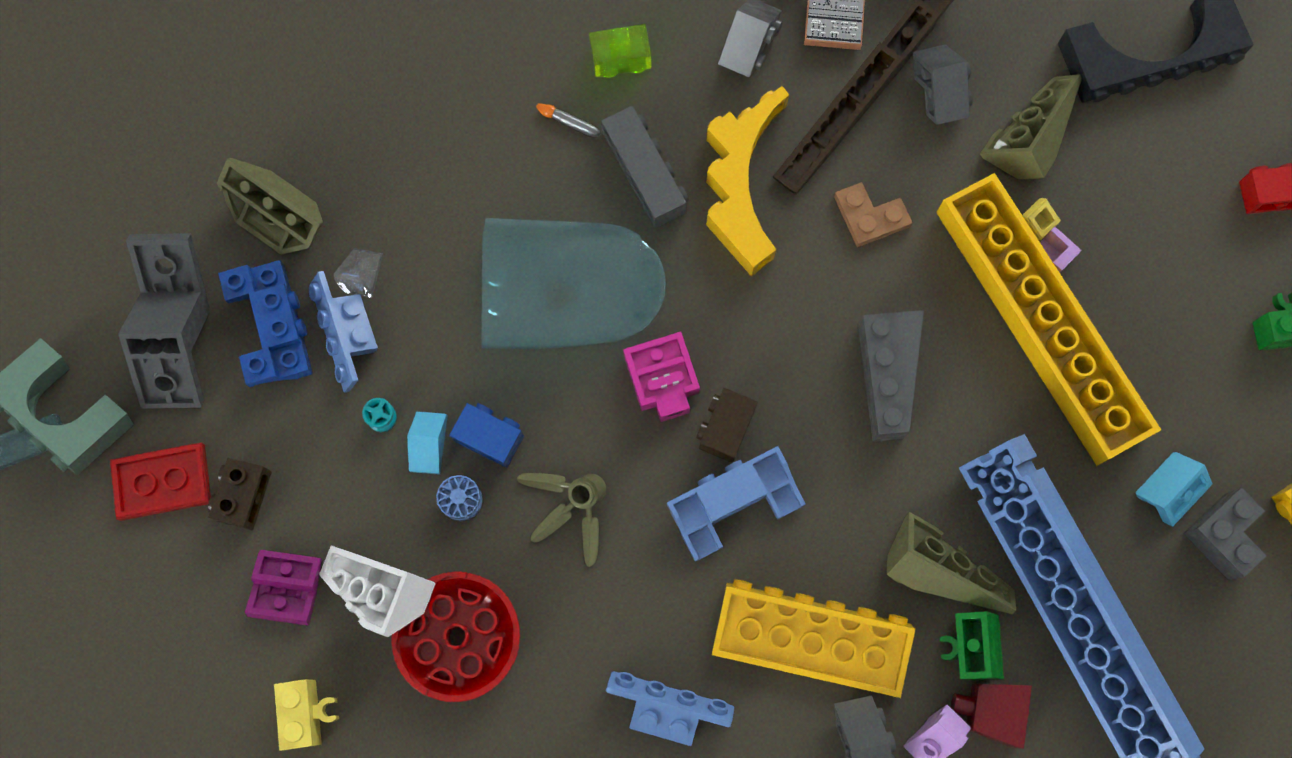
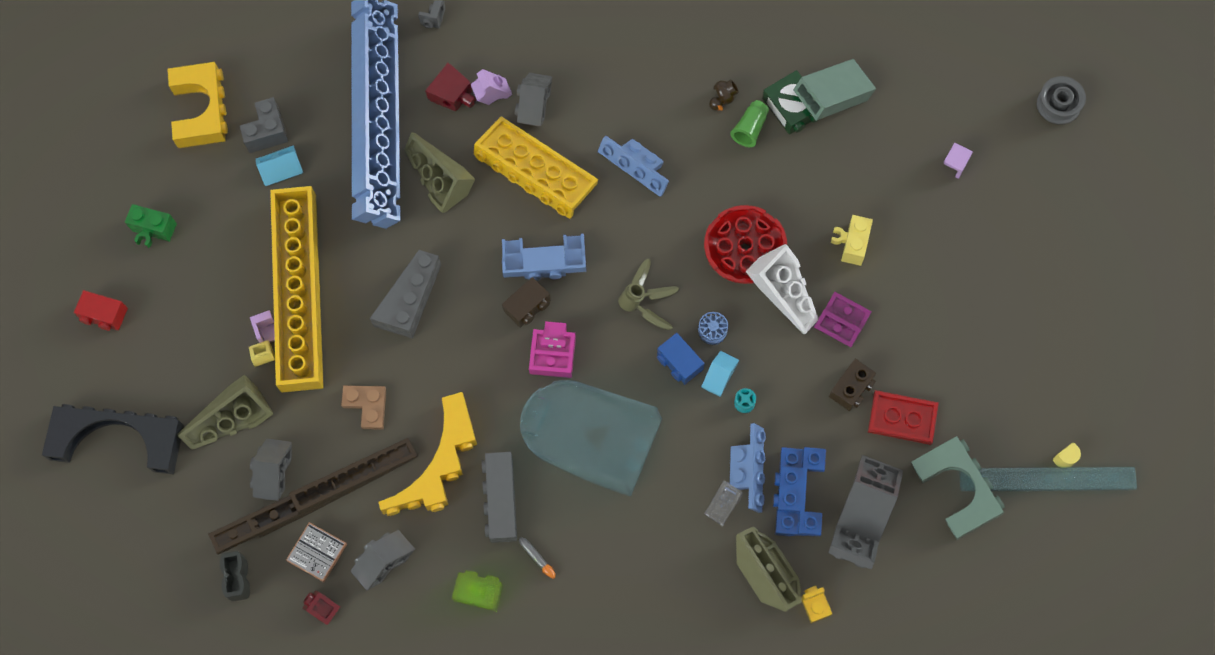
camera: 155 degrees left, 5 degrees down
(204, 199) = (816, 604): none -> yellow bracket
(977, 646) = (443, 123): green brick -> none

